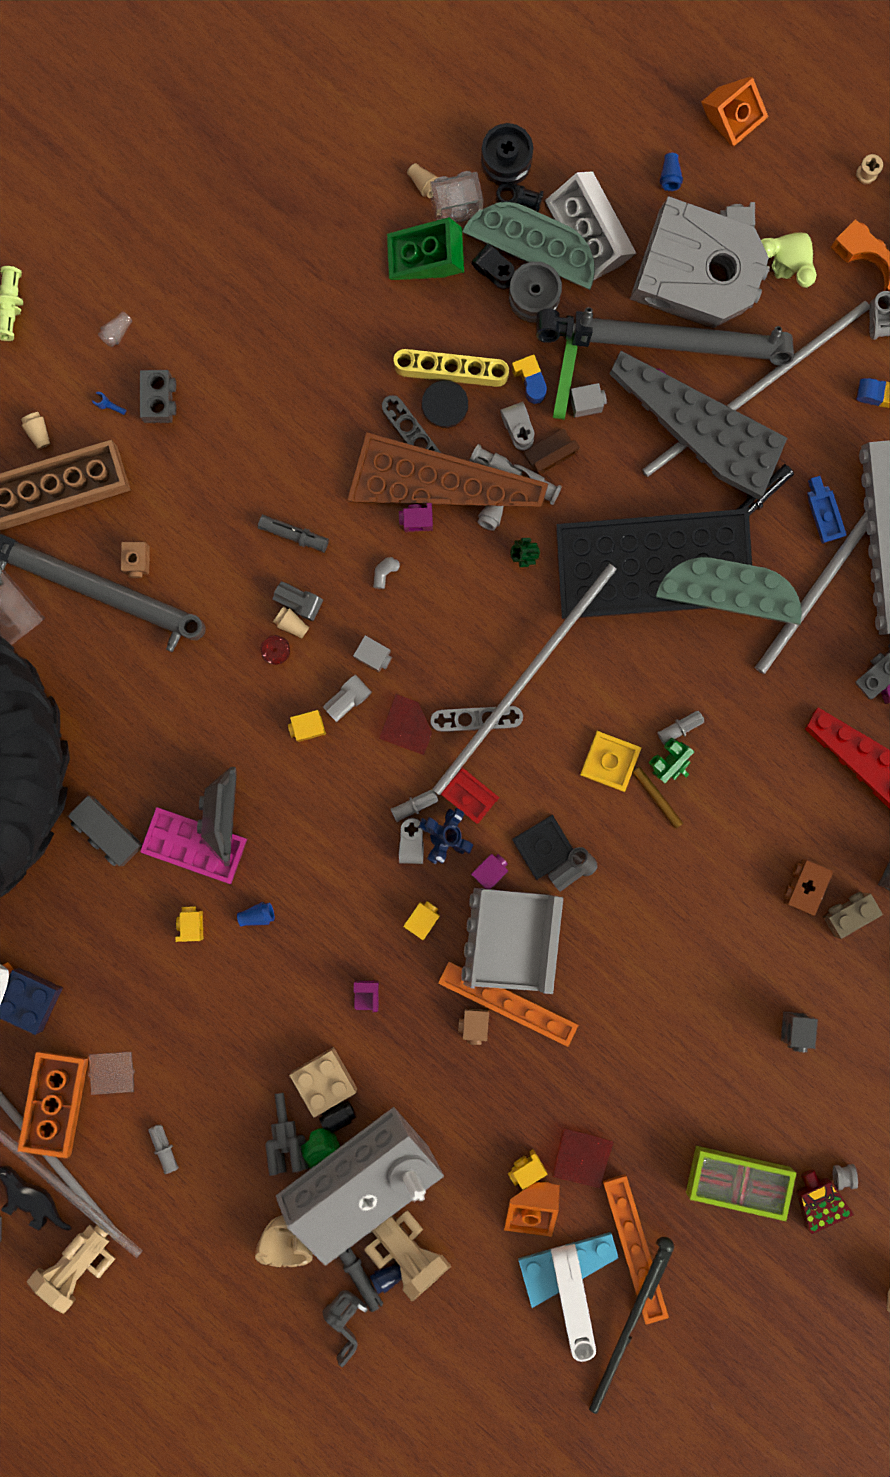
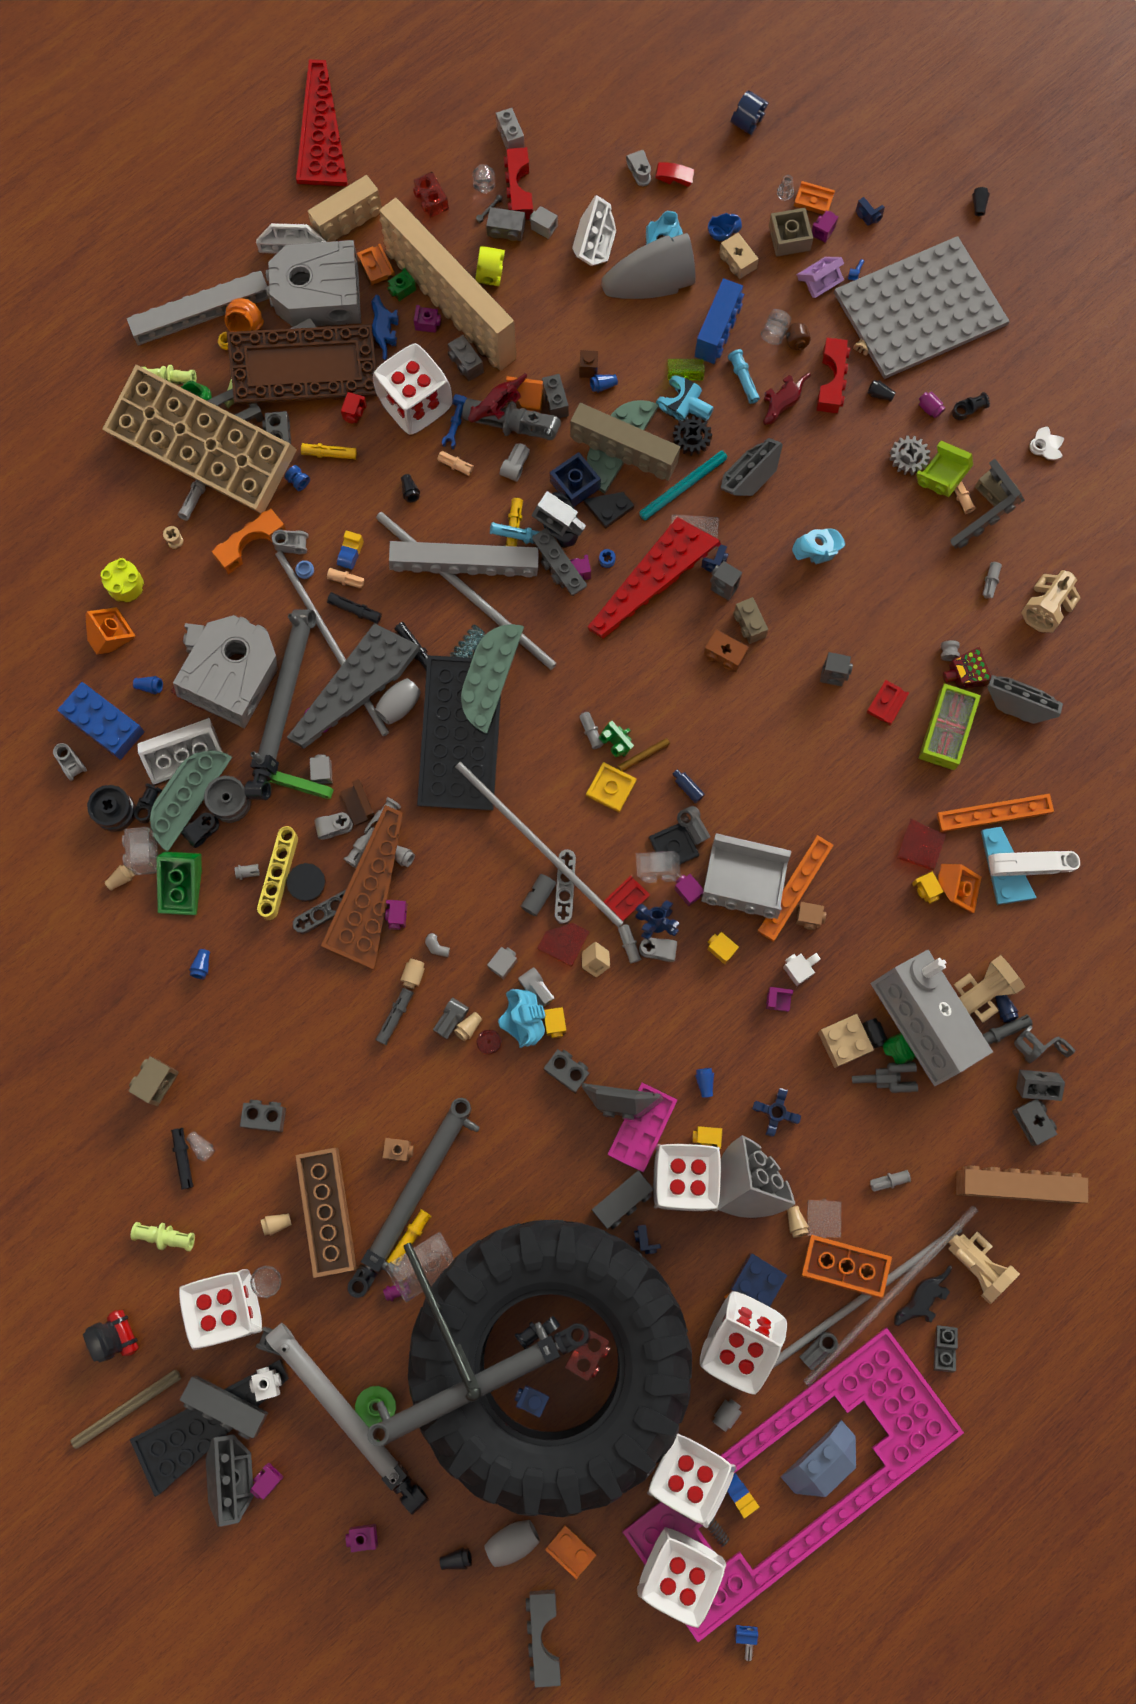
camera: 85 degrees left, 10 degrees down
(44, 590) = (411, 1234): none -> yellow pin
(65, 857) = (641, 1237): none -> dark blue bracket
(98, 311) = (180, 1149): none -> black pin
(101, 1041) = (797, 1223): none -> tan cone
(105, 403) = (262, 1160): blue hand -> none
(132, 904) = (687, 1177): none -> white piece
(140, 980) = (752, 1182): none -> light grey brick
(170, 1310) = (1022, 1186): none -> medium nougat brick
(181, 260) = (153, 1081): none -> dark tan brick
(217, 1002) = (772, 1126): none -> dark blue pin
(244, 744) = (563, 1075): none -> dark grey brick
(258, 1310) = (1043, 1129): none -> dark grey brick
(281, 1247) = (974, 1086): tan hair -> none
(295, 1326) = (1040, 1085): none -> dark grey brick
(306, 687) = (523, 1017): none -> medium azure piece
(329, 294) = (200, 965): none -> blue cone
(346, 547) = (412, 973): none -> tan brick
(389, 766) = (595, 959): none -> tan panel
(407, 1017) = (799, 968): none -> white brick
(449, 330) = (247, 871): none -> light grey pin
(460, 687) = (540, 892): none -> dark grey pin
(511, 829) = (658, 866): none -> clear brick
(525, 552) = (436, 832): dark green gear -> none
(532, 378) = (297, 810): leg -> none
(557, 96) = (70, 763): none -> light grey piece
(616, 122) = (101, 720): none -> blue brick
(622, 857) = (688, 786): none -> dark blue cylinder
(647, 1290) = (1027, 805): pearl dark grey bar -> none
(686, 481) = (397, 701): none -> light grey piece
(765, 1101) = (887, 702): none -> red plate
(769, 559) = (469, 644): none -> clear light blue piece
(789, 1277) = (1023, 700): none -> dark grey wedge
(792, 255) = (231, 600): yellowish green head -> none
(802, 116) = (122, 580): none -> neon yellow brick
(802, 417) = (361, 611): none -> black pin
(825, 511) = (435, 602): blue hinge -> none
(843, 393) = (345, 578): none -> light nougat axle
(848, 340) = (304, 569): none -> medium blue plate

